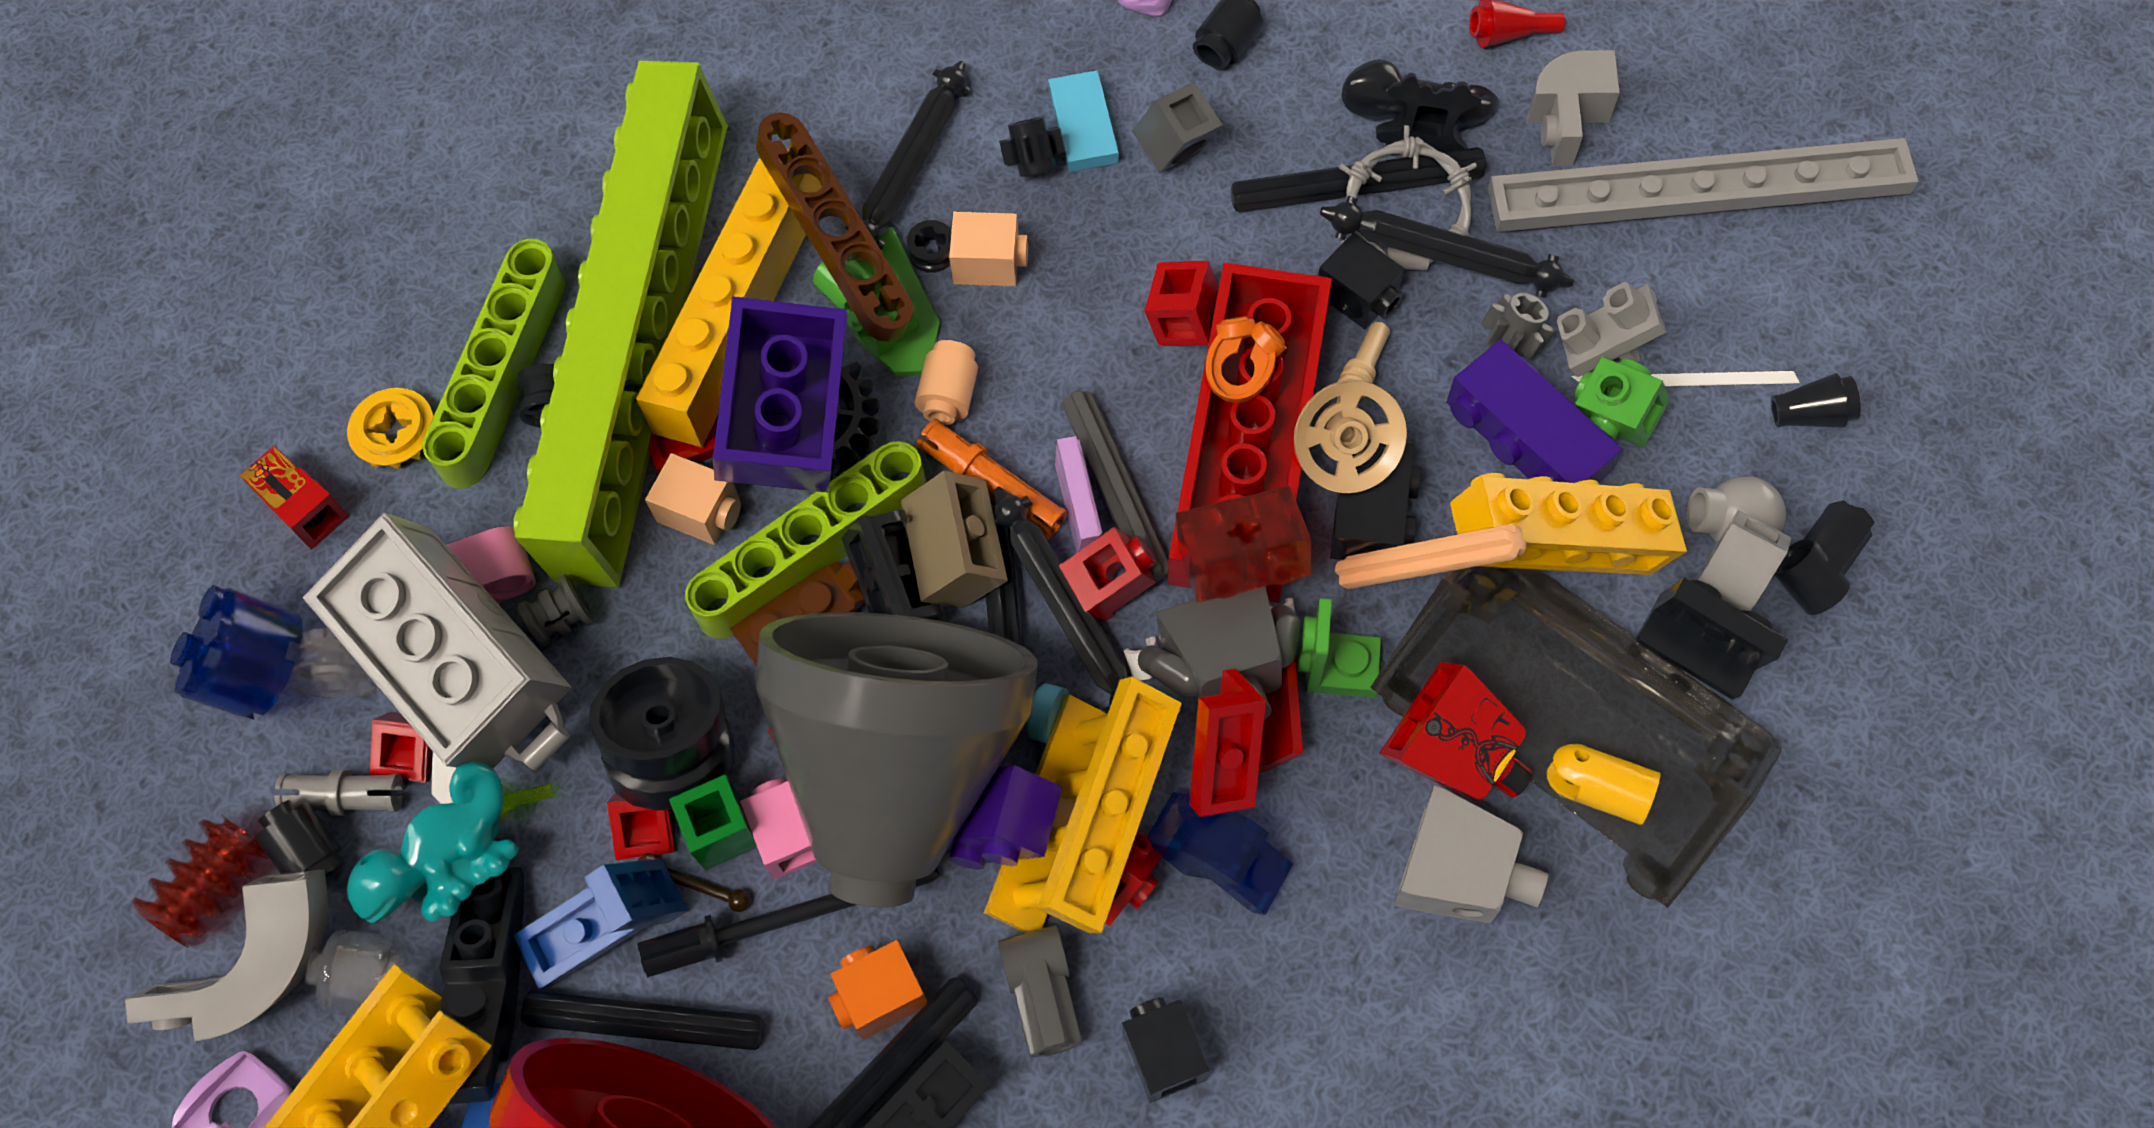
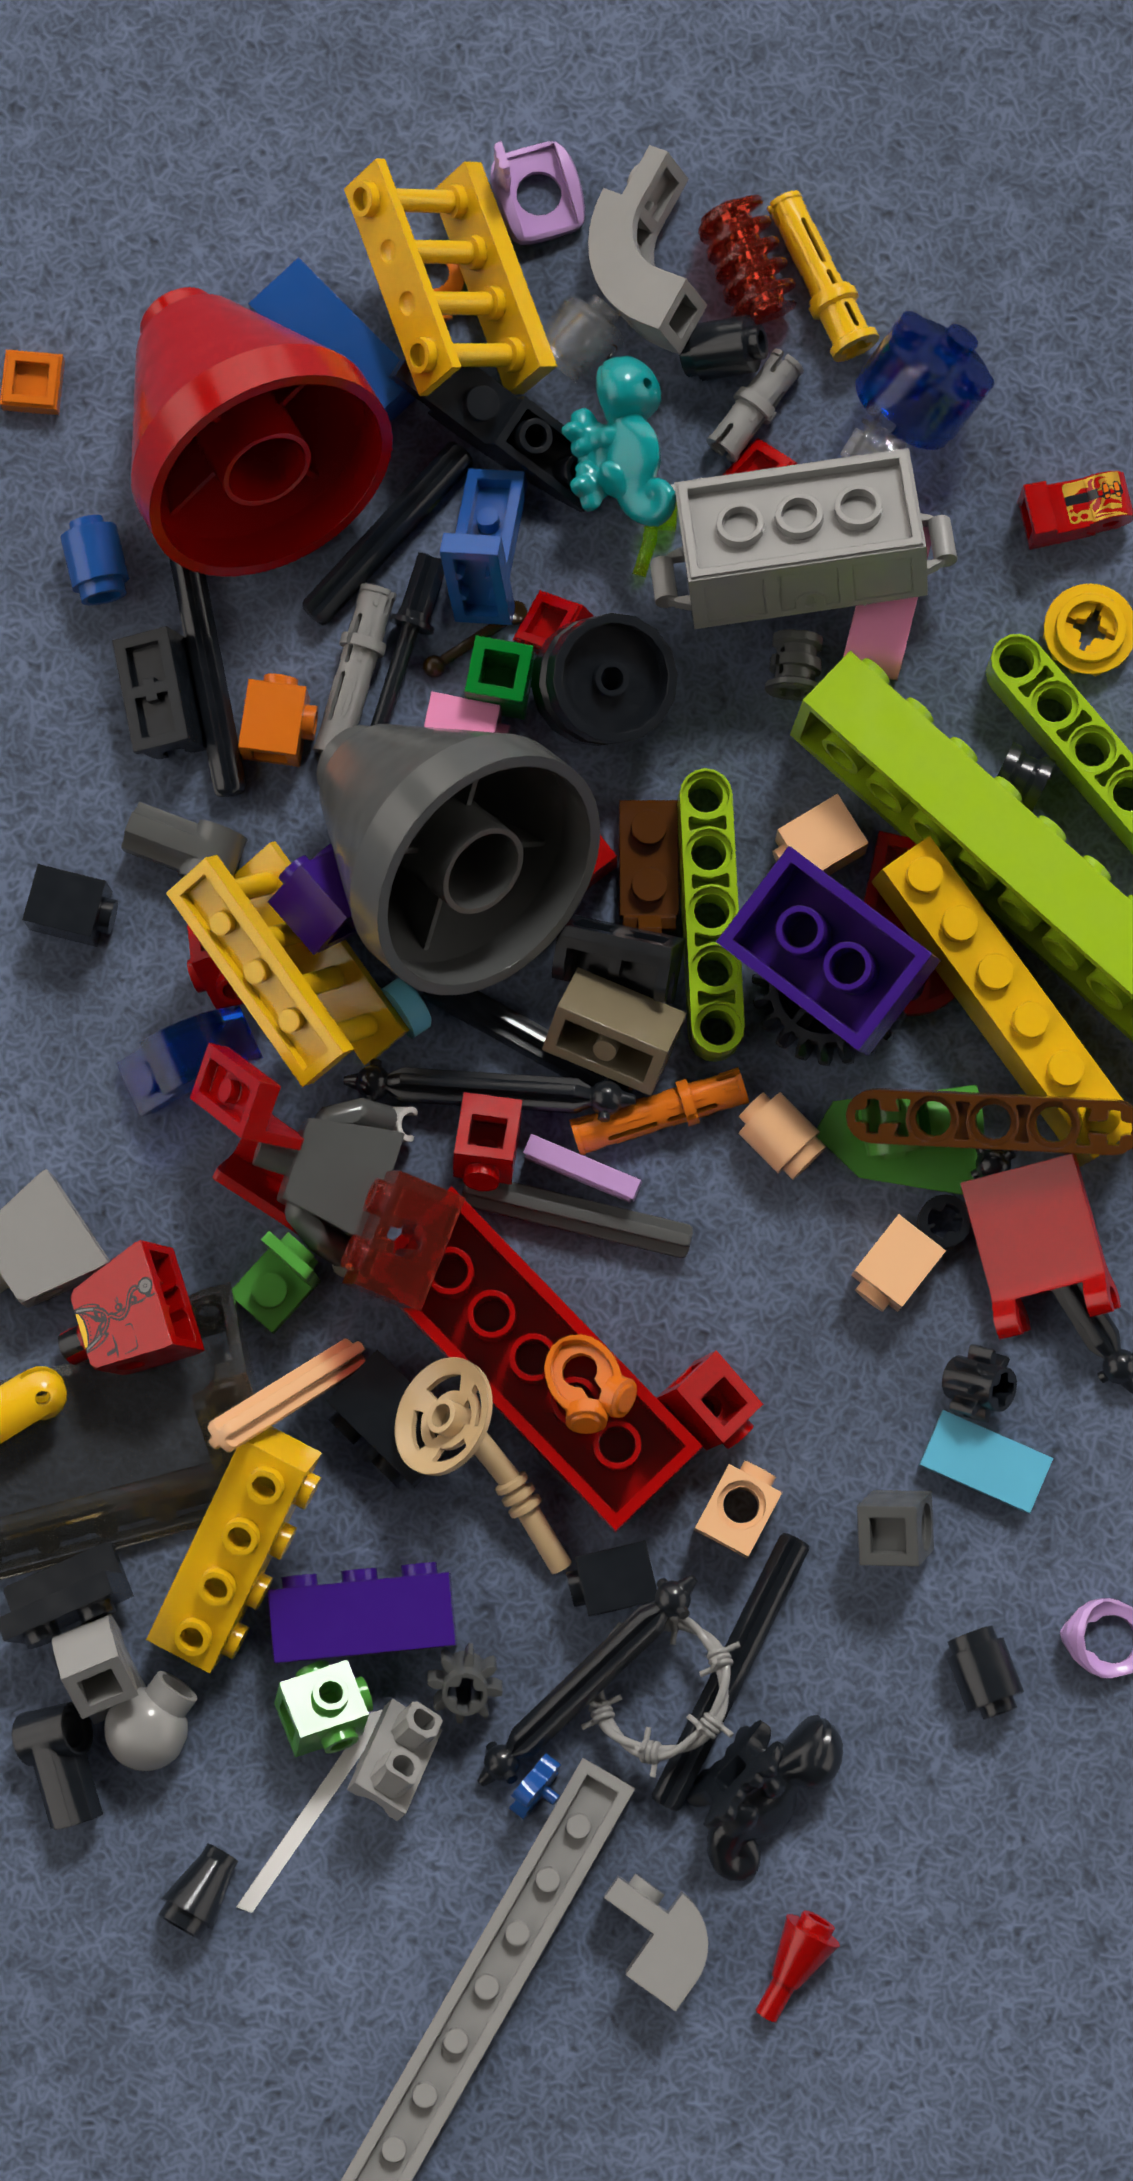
camera: 125 degrees right, 15 degrees up
(201, 792) = (832, 298): none -> yellow pin
(785, 958) = (358, 659): none -> light grey pin
(898, 168) = (1036, 1238): none -> red flag
(1250, 219) = (733, 1535): none -> light nougat brick
(1546, 238) = (535, 1786): none -> blue piece

